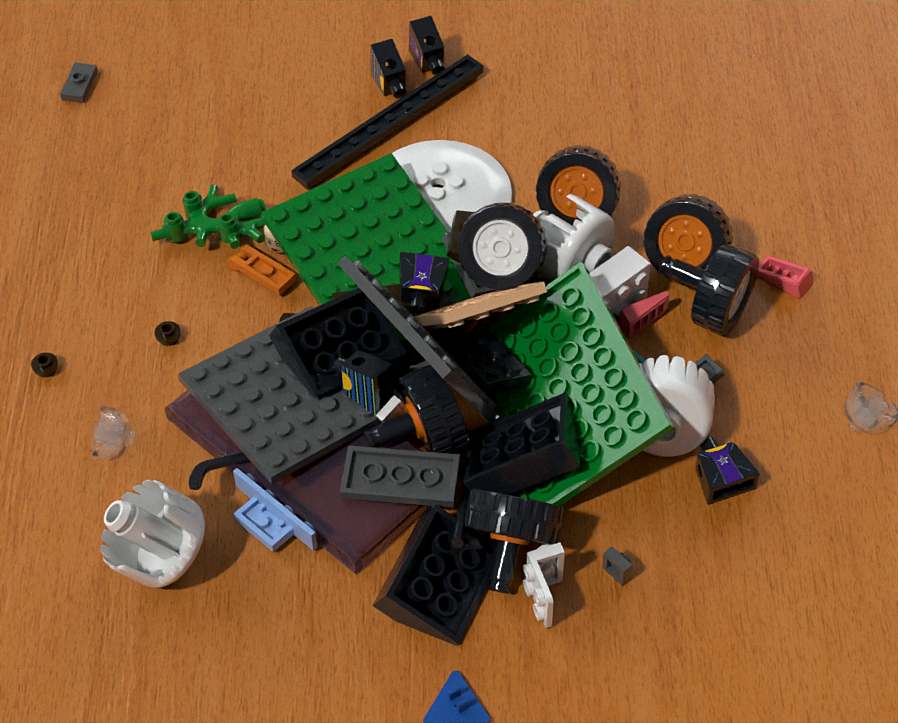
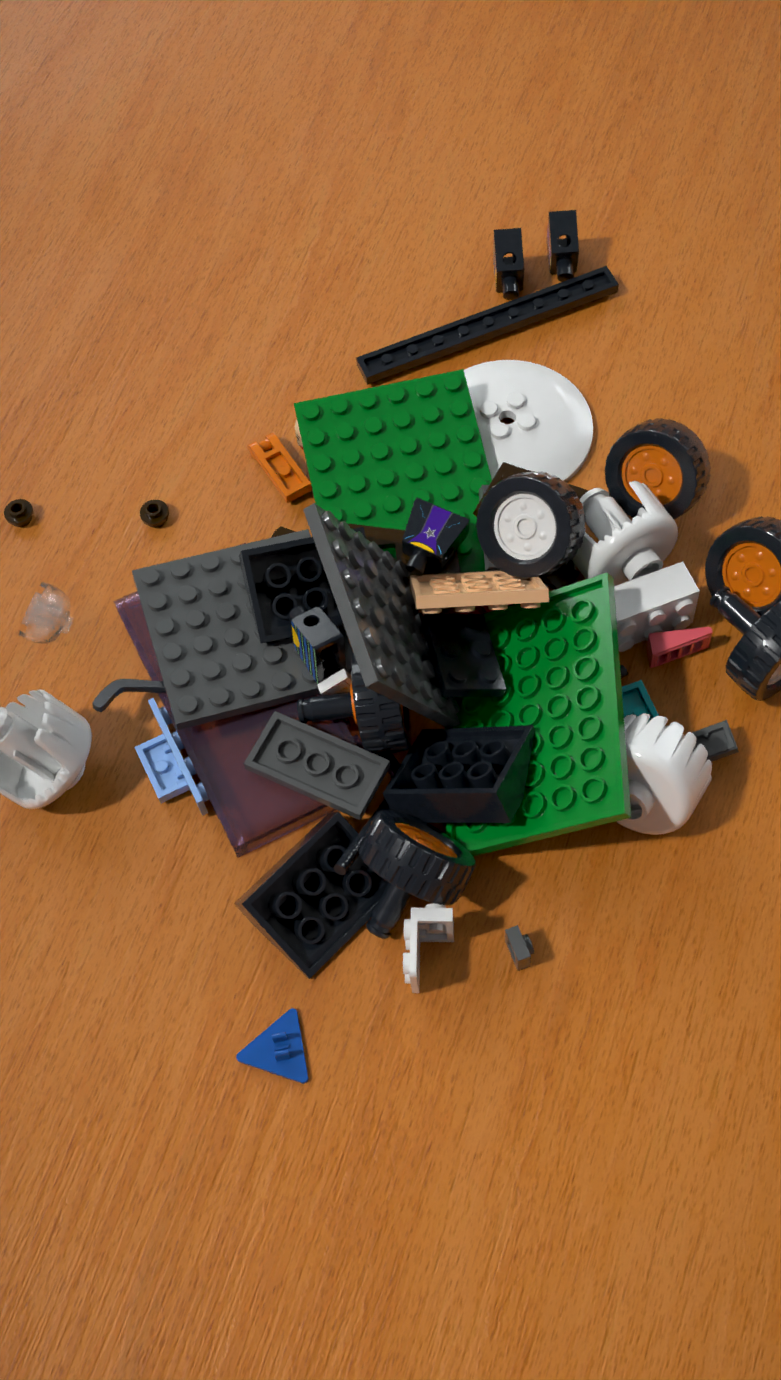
camera: 25 degrees right, 10 degrees up
(79, 82) = (181, 193): dark grey plate -> none
(199, 223) = (237, 397): green plant -> none
(724, 471) = (688, 871): black torso -> none

